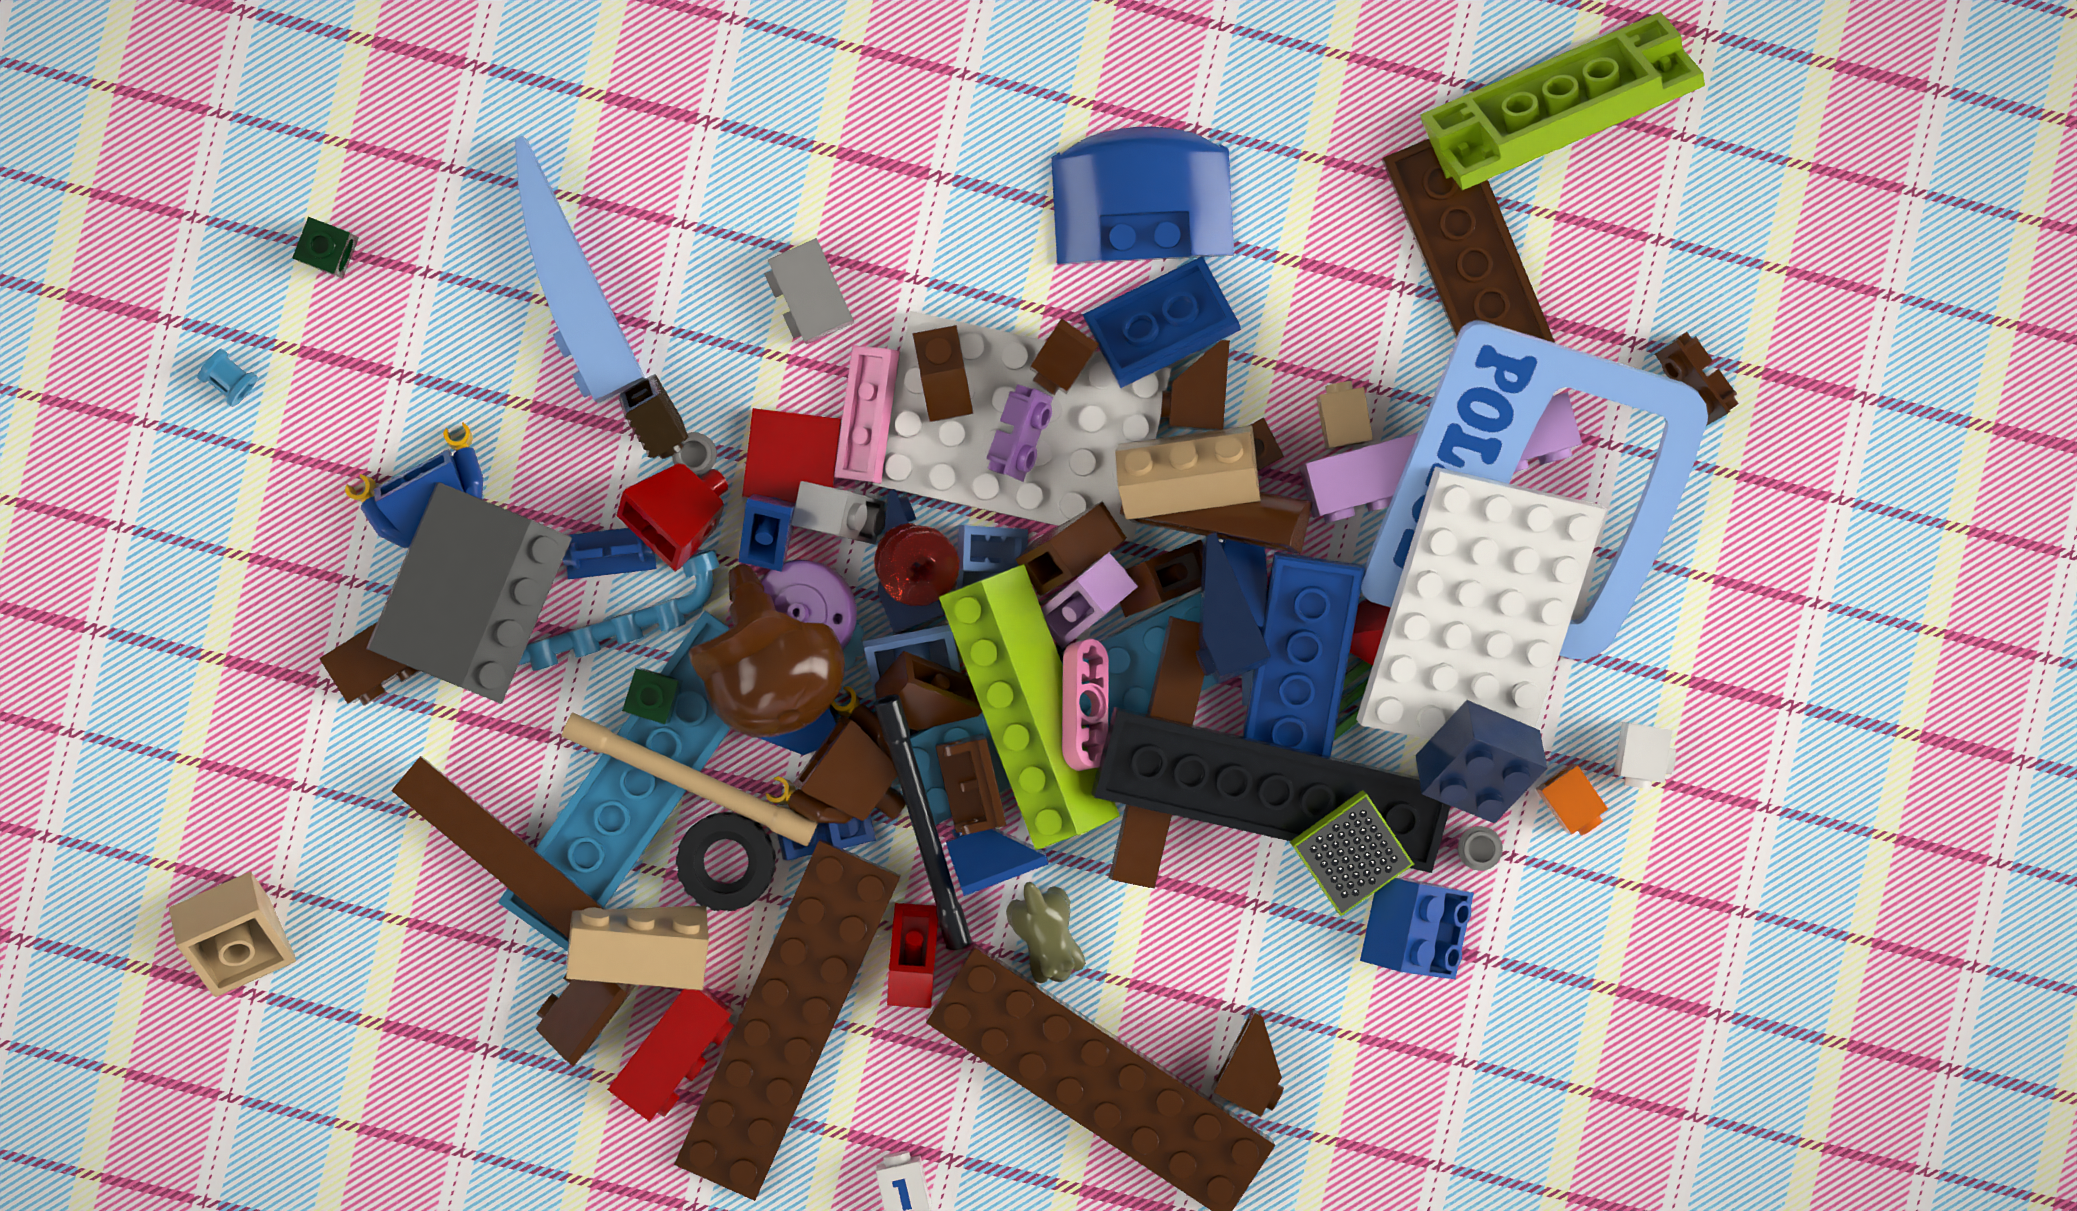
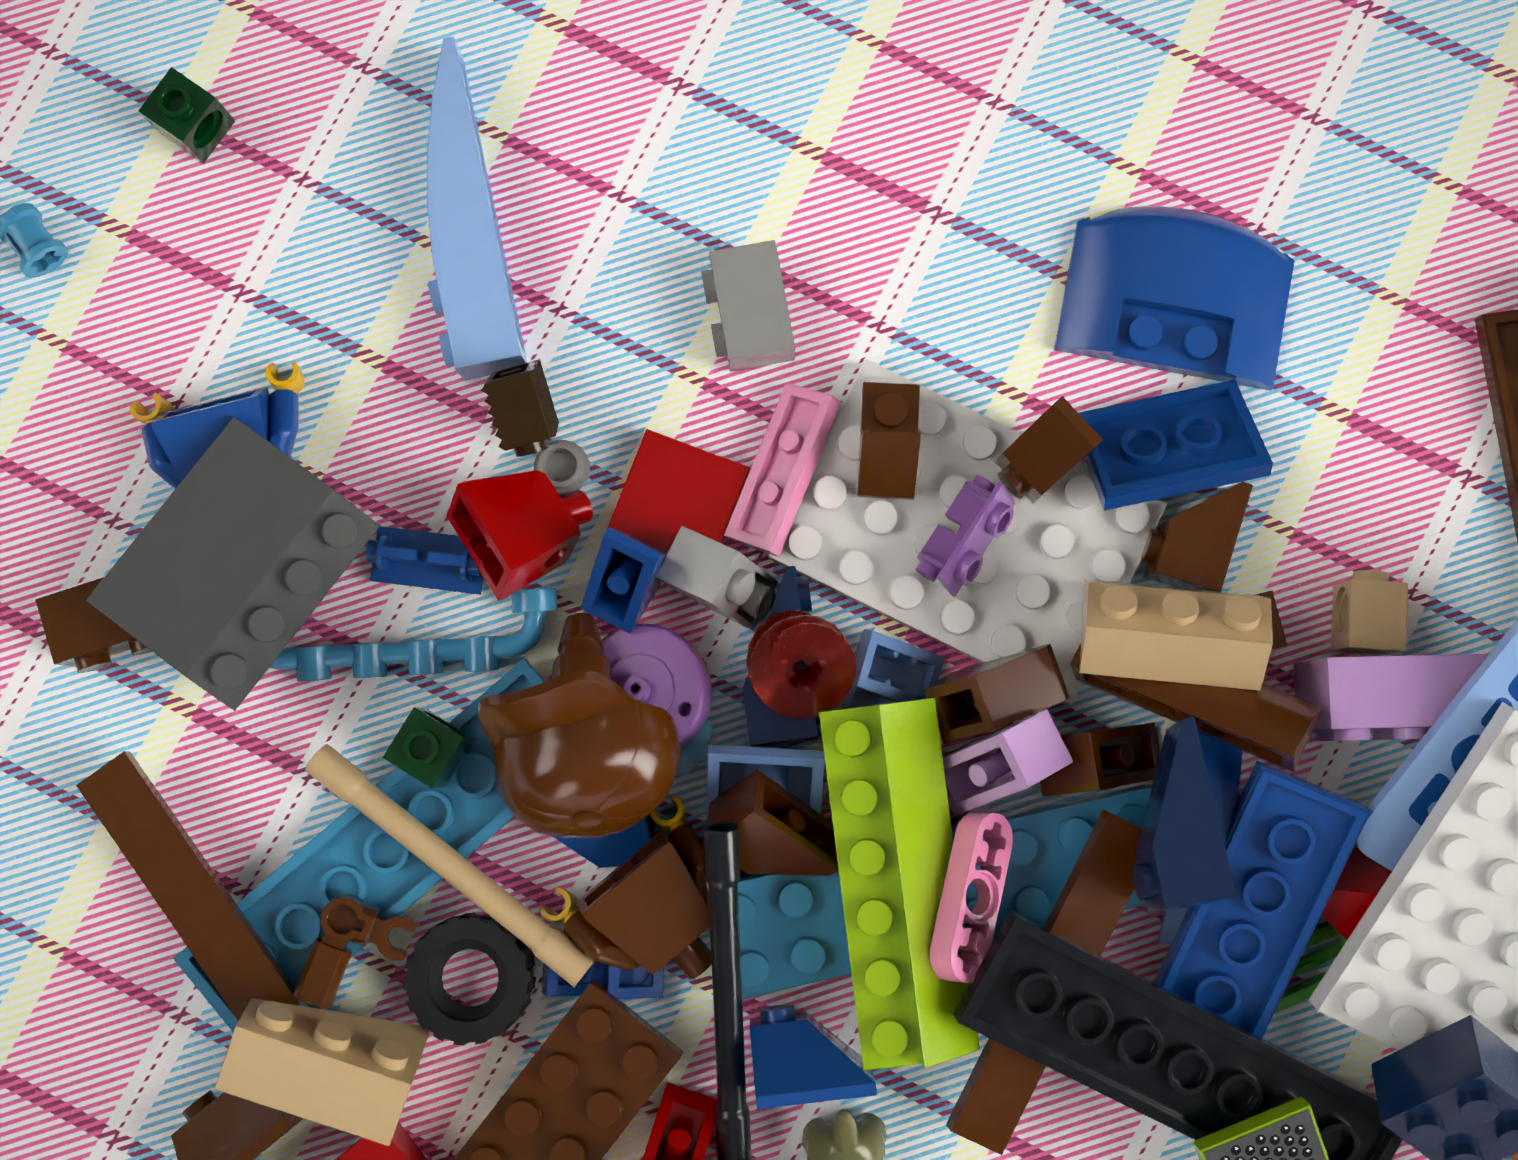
camera: 20 degrees right, 5 degrees down
(617, 872) = (343, 921): none -> reddish brown bar
(970, 784) = (800, 962): reddish brown hinge -> none

